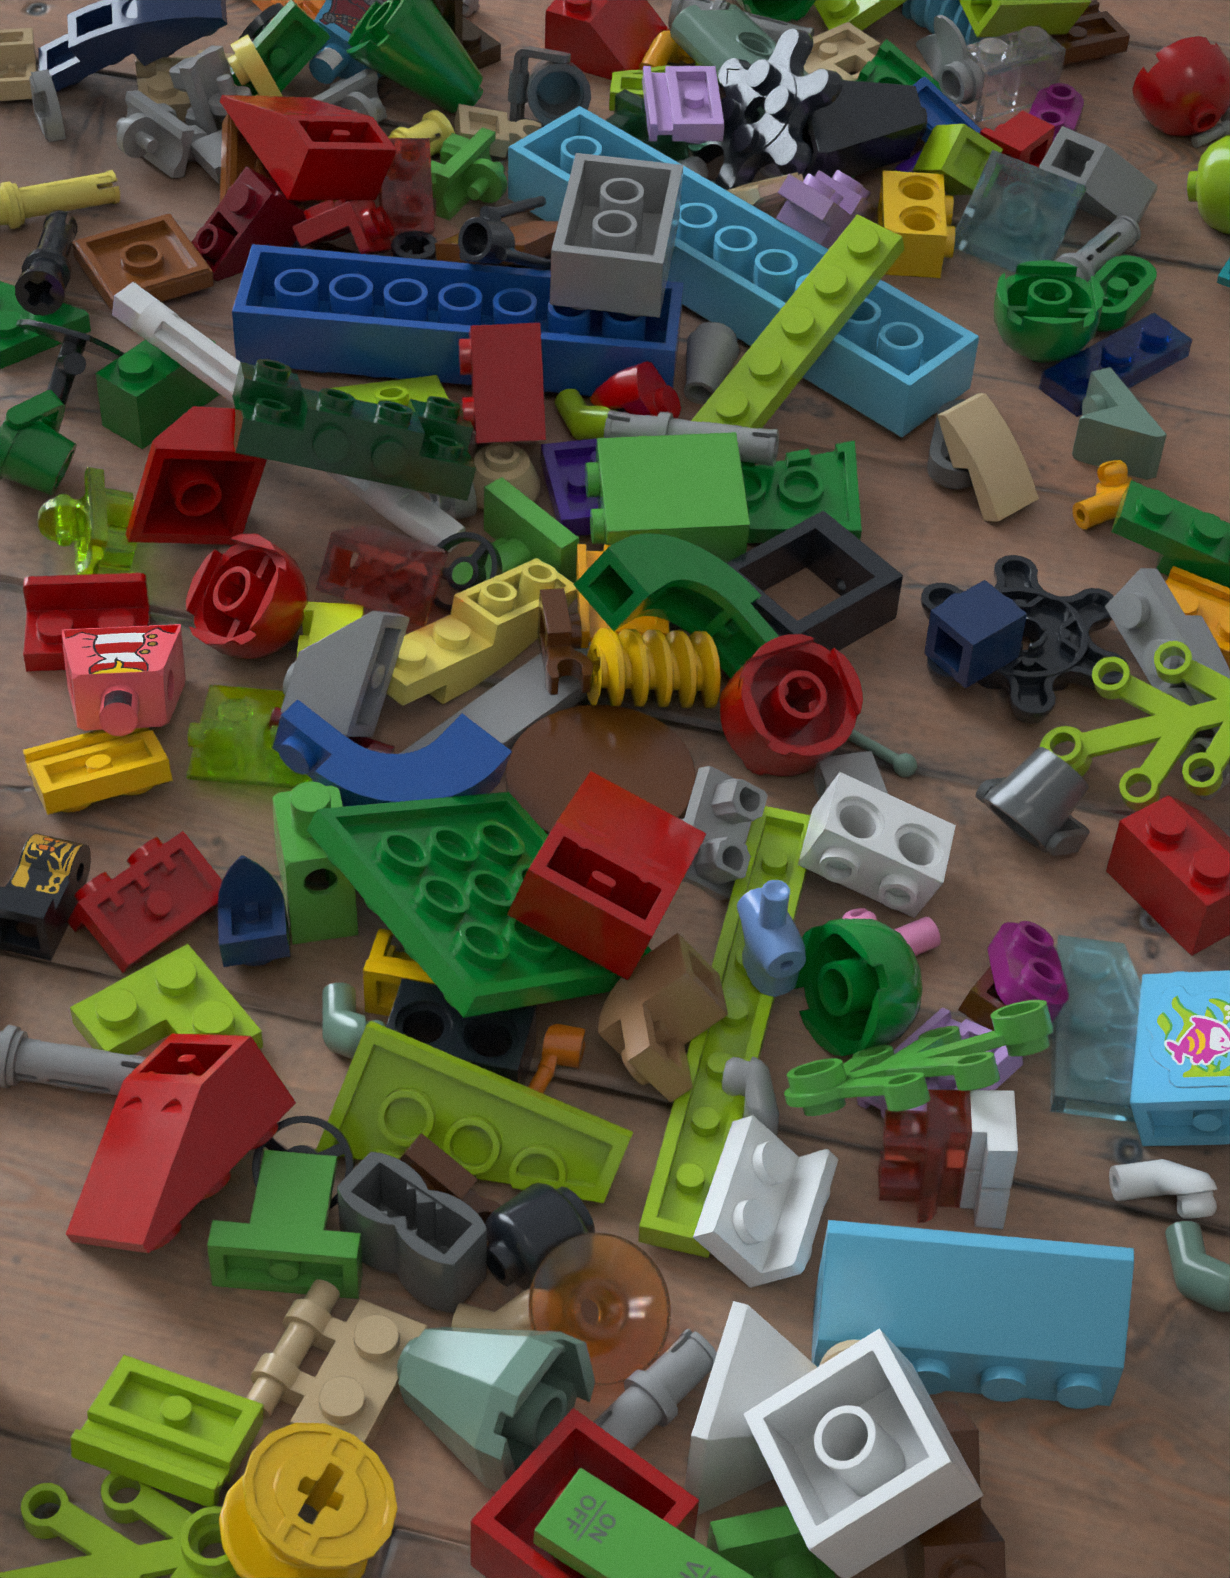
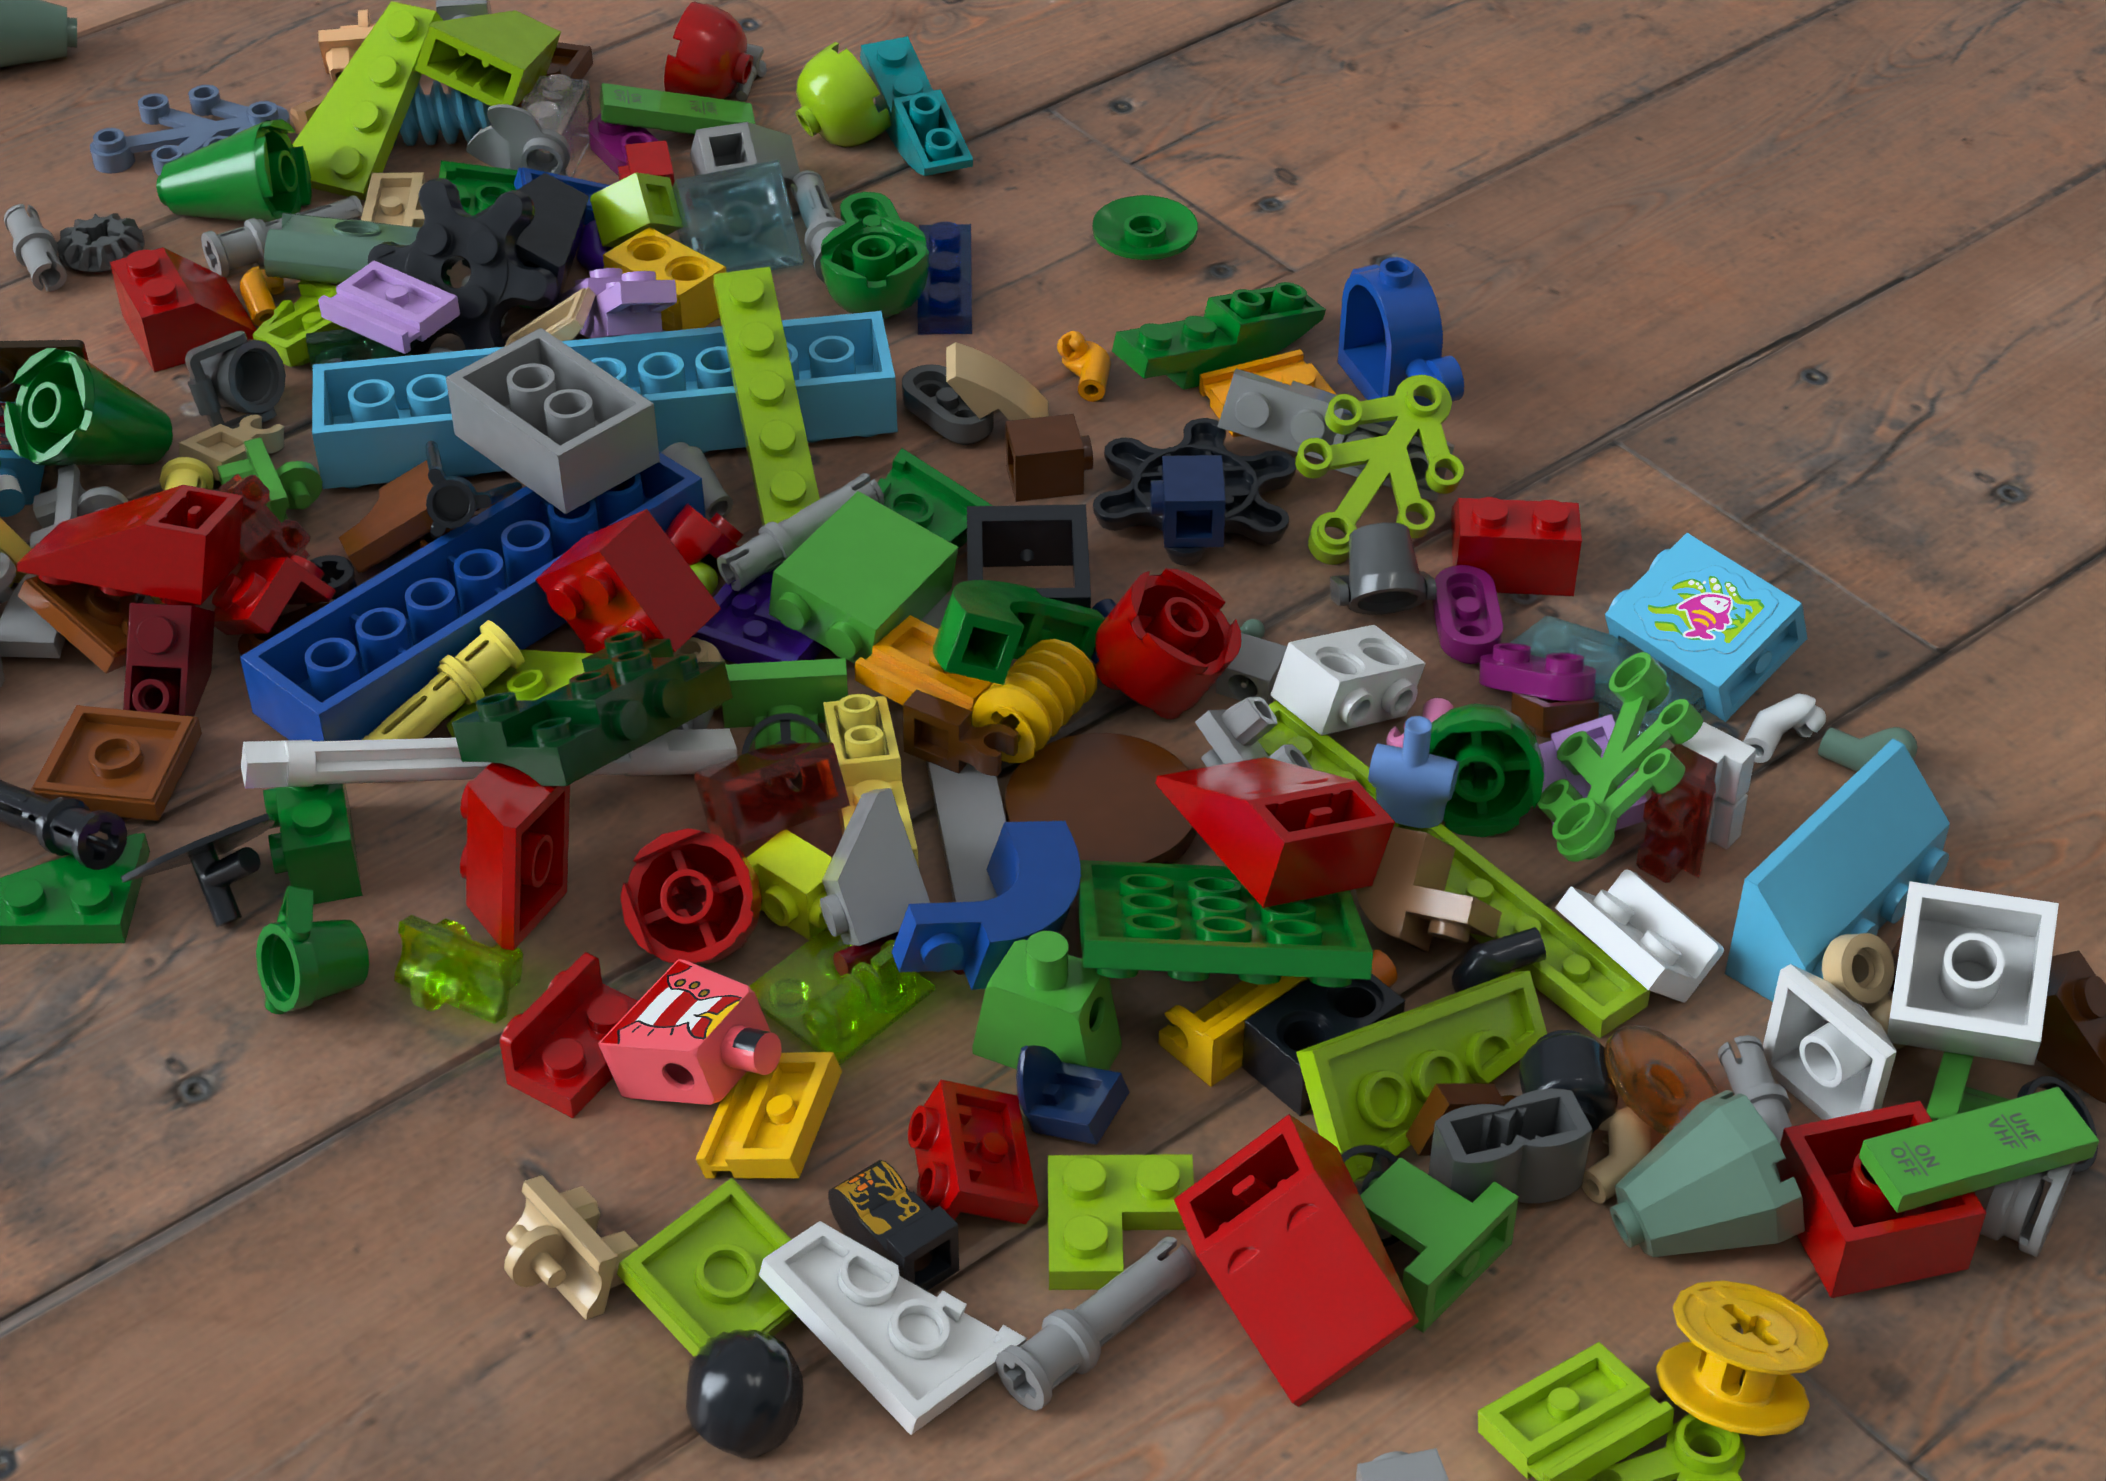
camera: 50 degrees left, 5 degrees down
(340, 1022) = (1238, 1101): sand green arm -> none
(354, 363) = (458, 682): none -> light yellow pin
(358, 1375) = (1598, 1273): tan plate -> none
(641, 1114) = (1498, 958): none -> black arm
(755, 1083) = (1534, 874): light grey arm -> none
(956, 529) = (1047, 457): none -> reddish brown brick
(1054, 889) = (1467, 613): none -> magenta plate
(1112, 117) = (669, 110): none -> bright green tile
(1117, 428) = (1027, 310): sand green slope -> none

